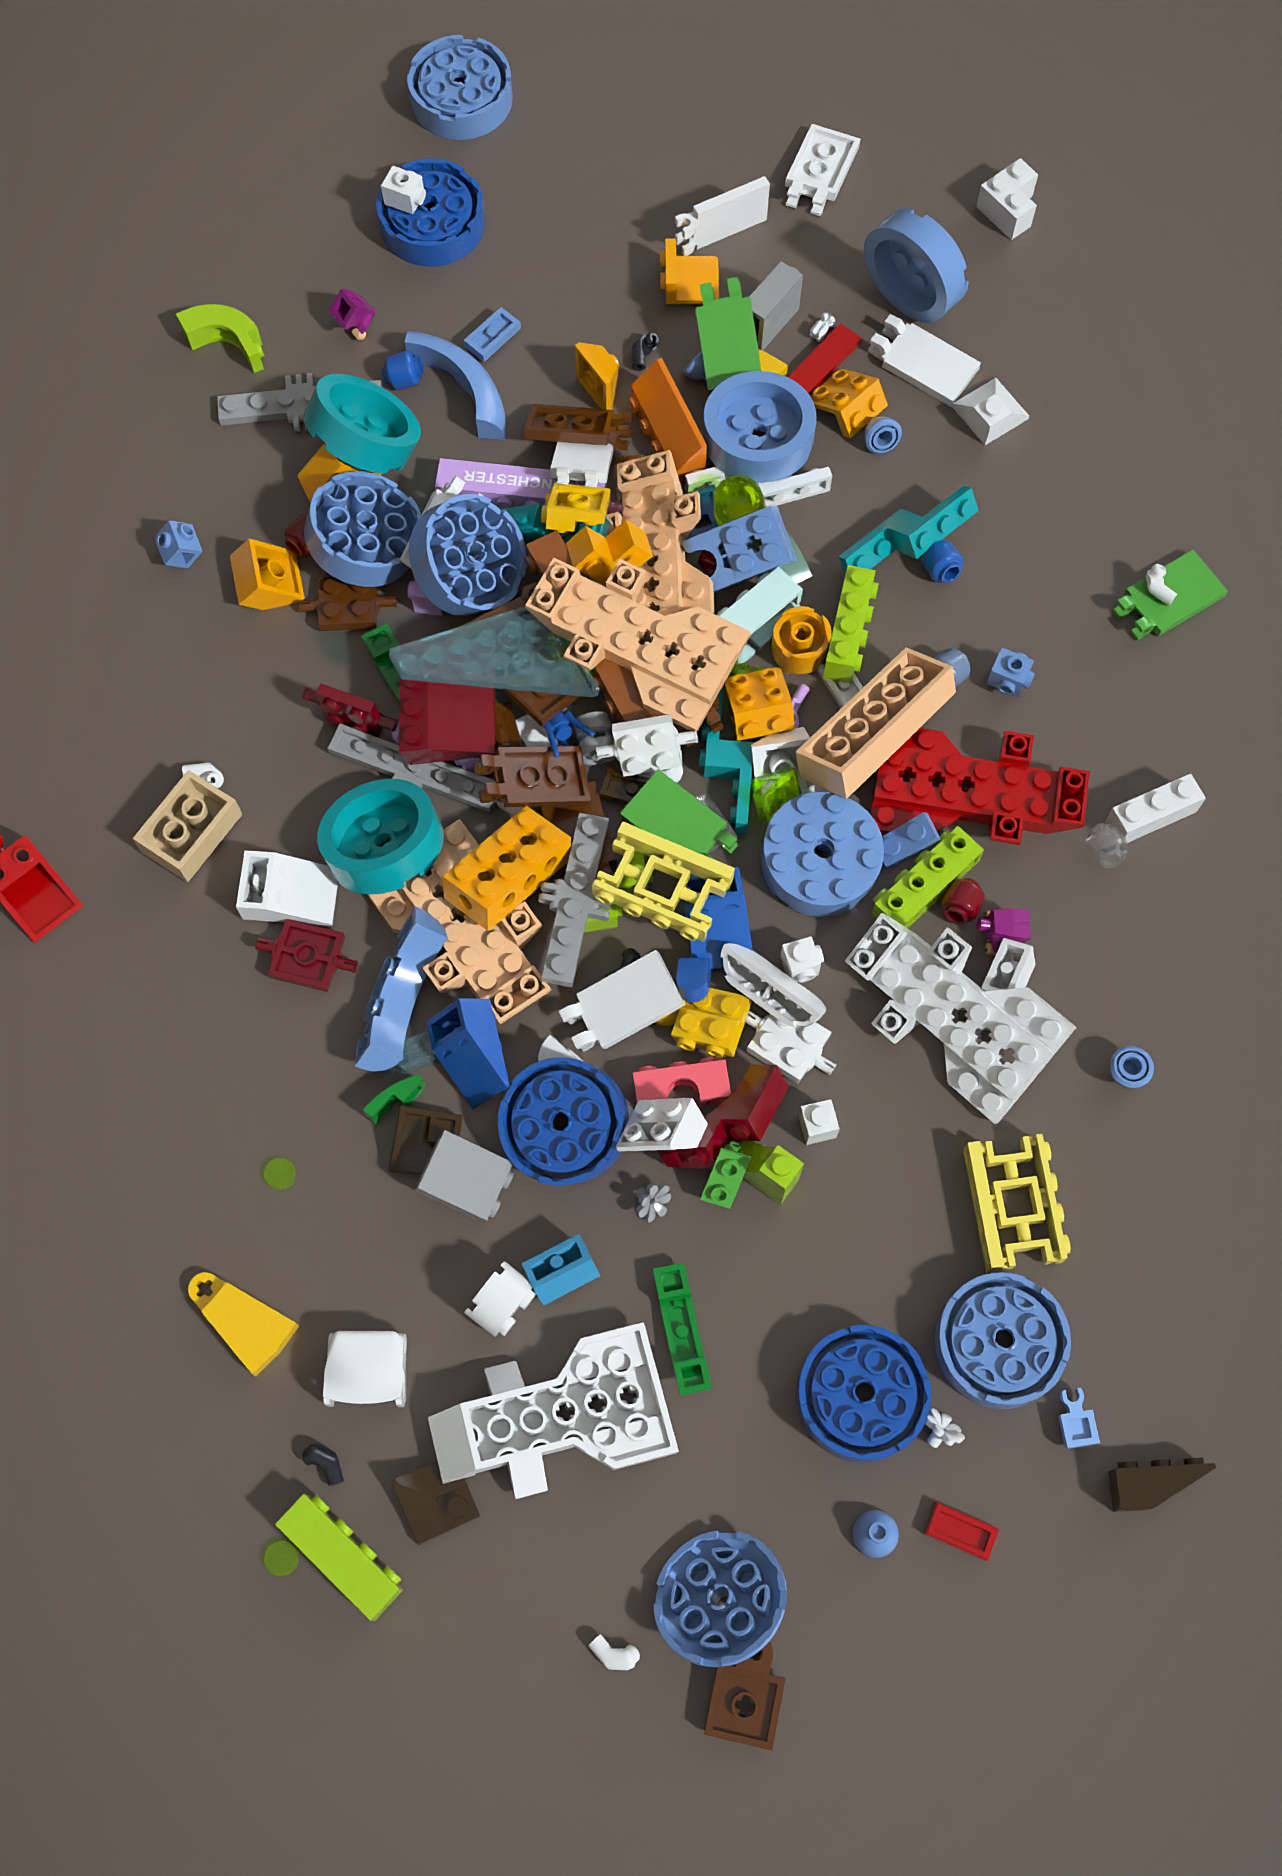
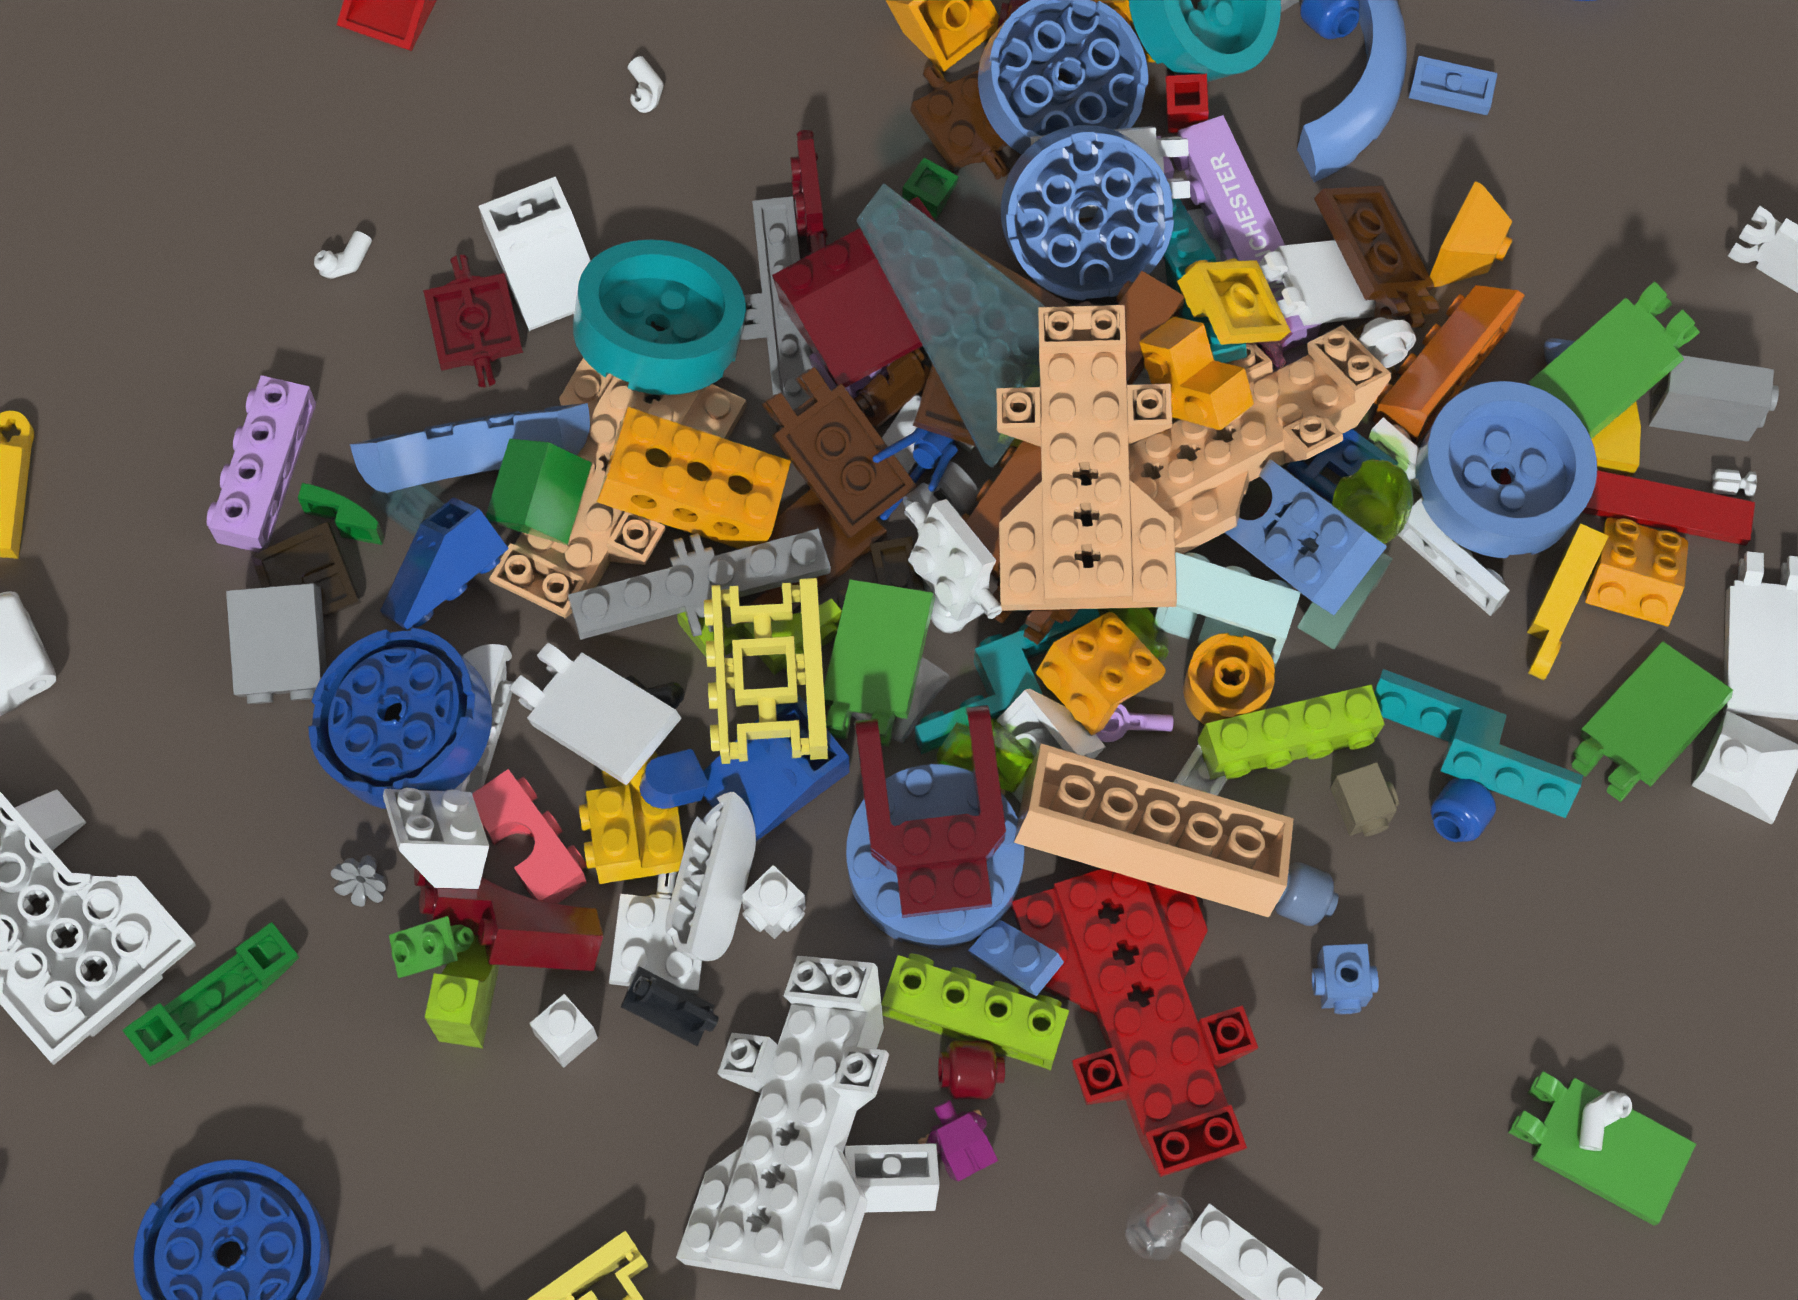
camera: 60 degrees right, 0 degrees up
(187, 826) = (561, 102): tan brick -> none
(213, 1015) = (344, 262): none -> white arm
(280, 1173) = (190, 439): clear neon green piece -> none
(329, 1132) = (261, 464): none -> lavender brick
(418, 474) = (1186, 101): none -> red brick
(459, 962) = (538, 490): none -> green slope
(500, 1300) = (142, 761): white brick -> none
(560, 1269) = (215, 812): dark azure brick -> none
(638, 445) = (1388, 340): none -> white plate
(643, 348) = (1551, 275): black arm -> none
(685, 274) = (1698, 272): light orange bracket -> none
(836, 1051) = (669, 1006): none -> black hinge
(838, 845) = (937, 858): none -> dark red plate
(845, 444) = (1563, 594): none -> yellow piece
(882, 434) = (1611, 638): medium blue brick -> none
(909, 609) = (1365, 800): none -> dark tan brick
(939, 441) = (1650, 719): none -> bright green tile

